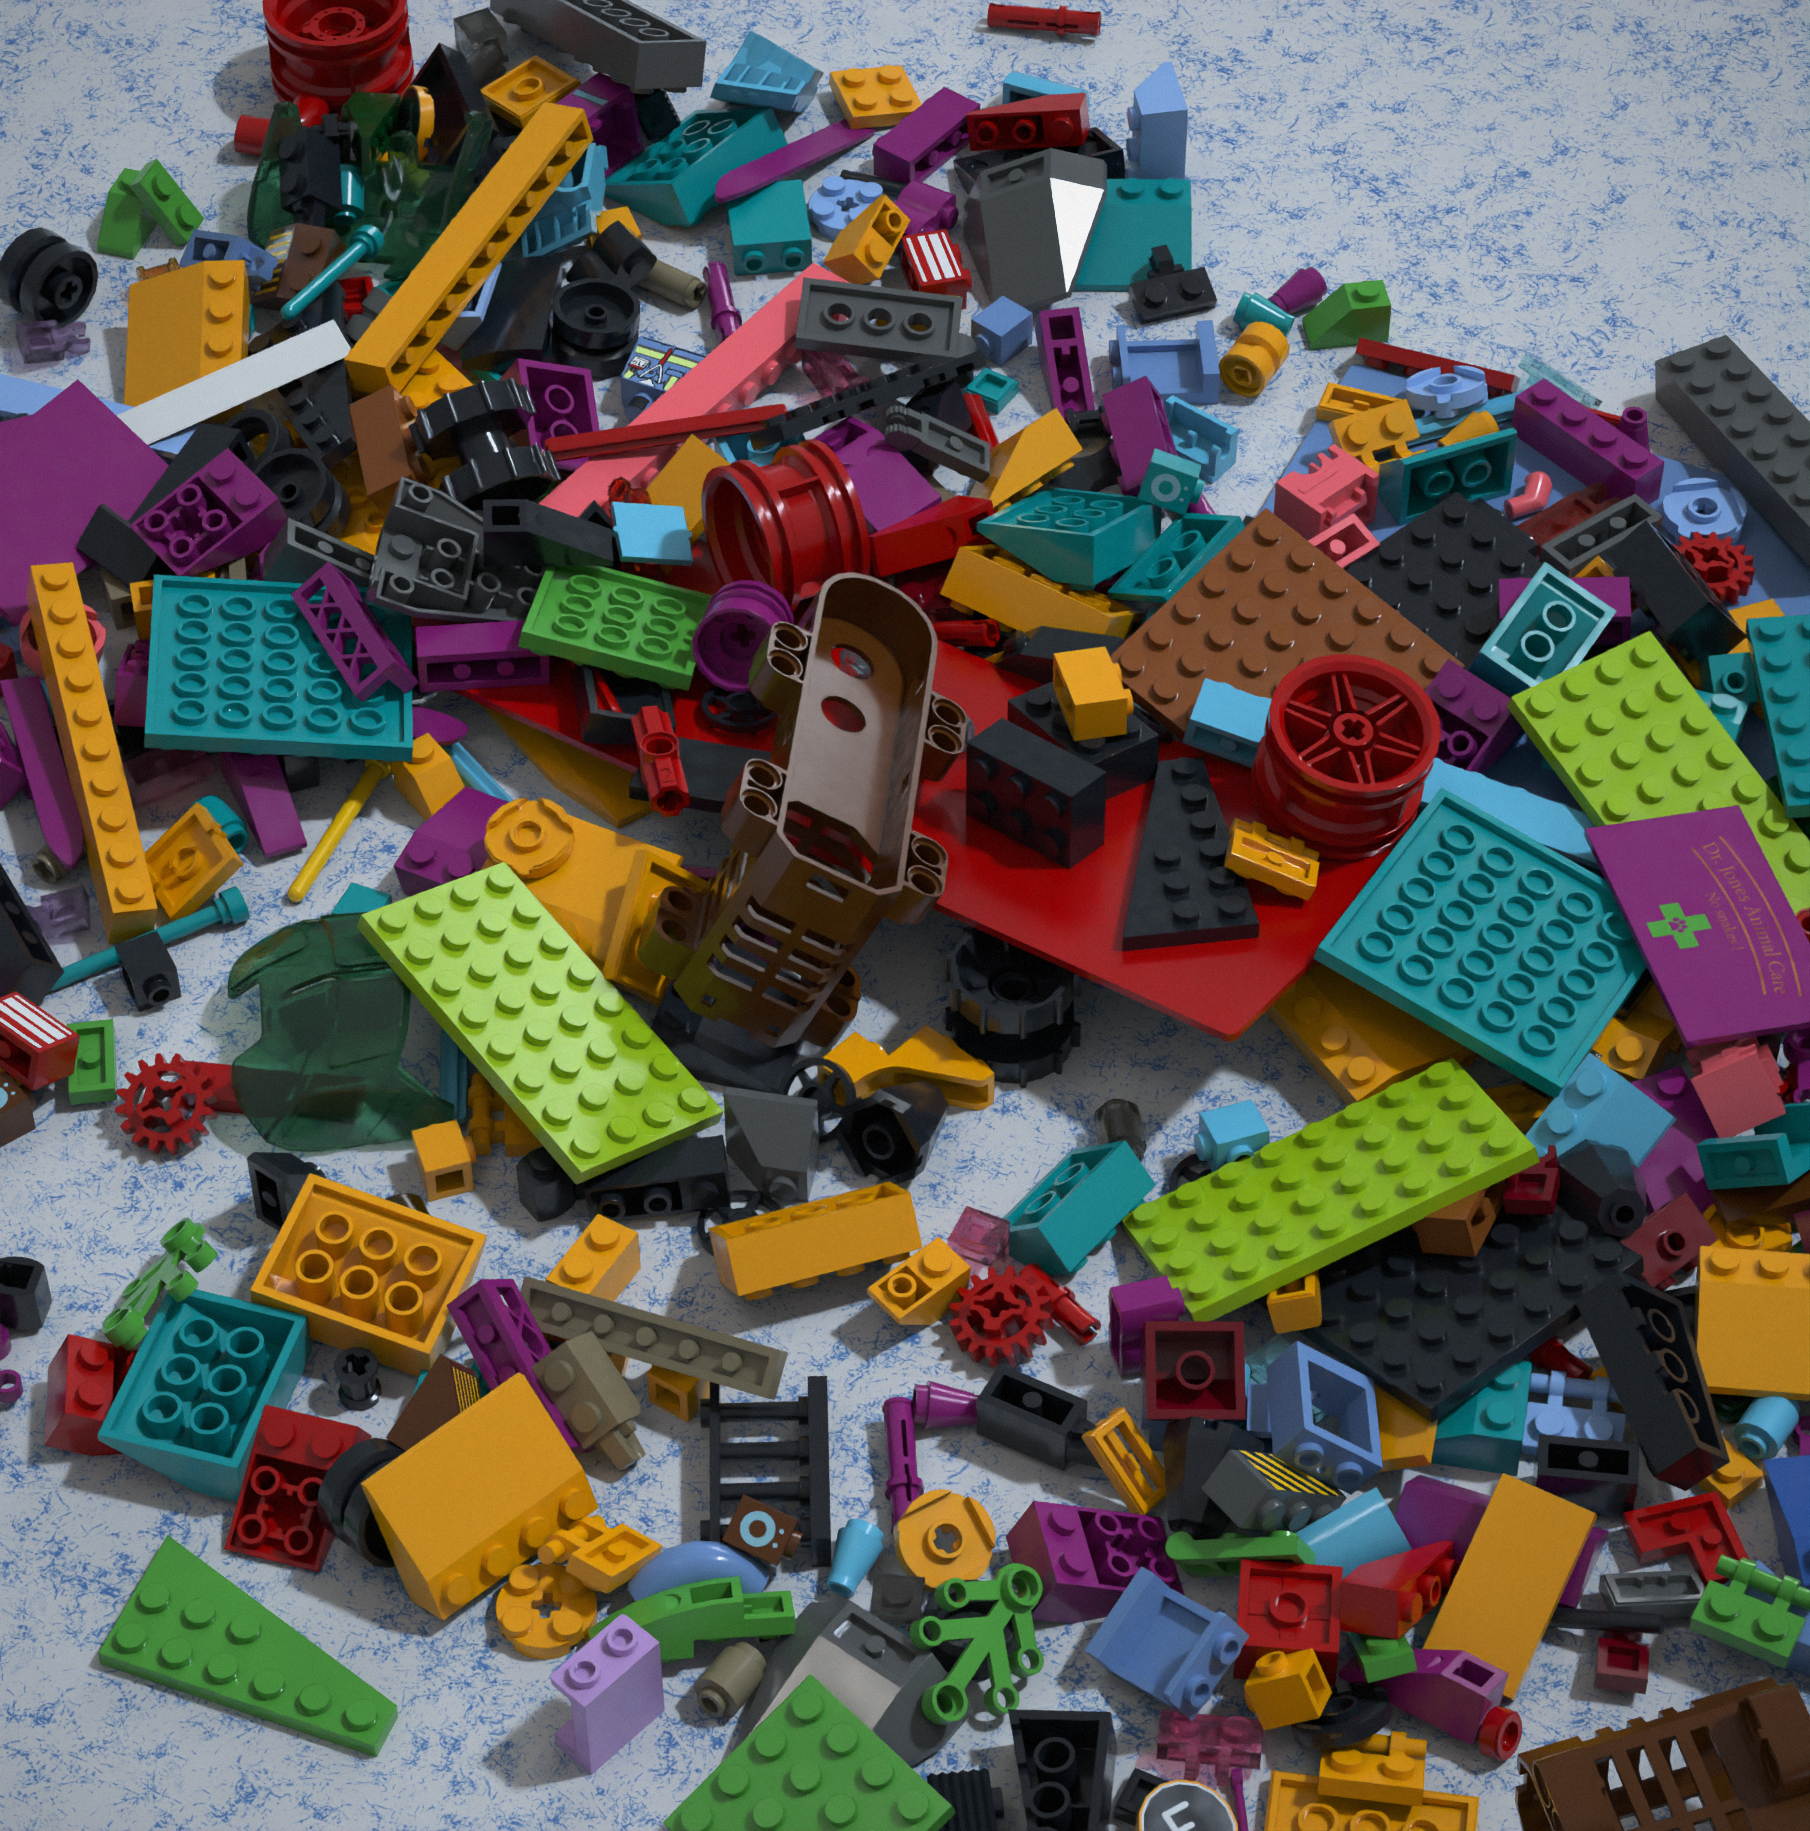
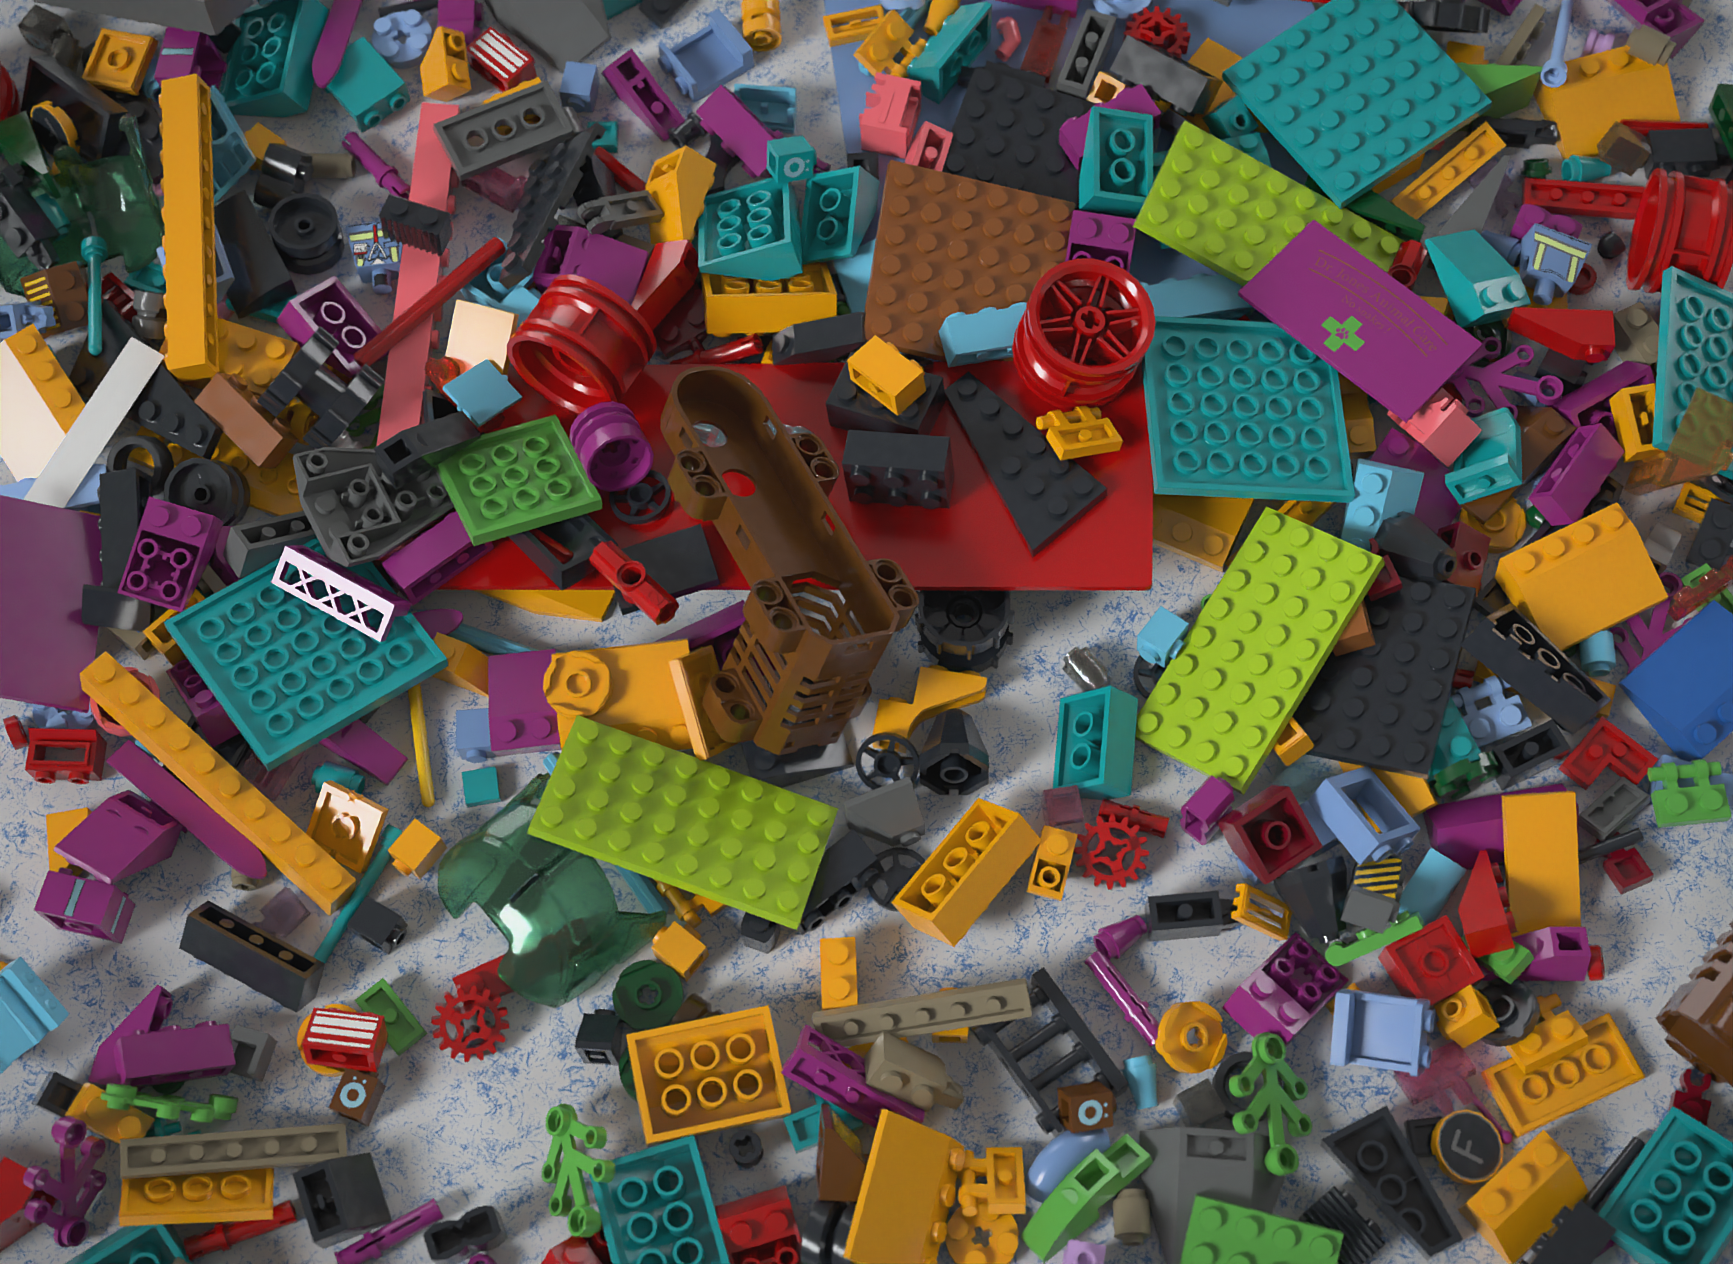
camera: 30 degrees left, 20 degrees up
(241, 919) = (416, 850): none -> light orange brick
(381, 1163) = (629, 990): none -> dark green plate
(383, 850) = (473, 735): none -> medium blue brick
(709, 357) = (415, 224): none -> black brick
(1482, 1450) = (1460, 776): none -> dark green plate

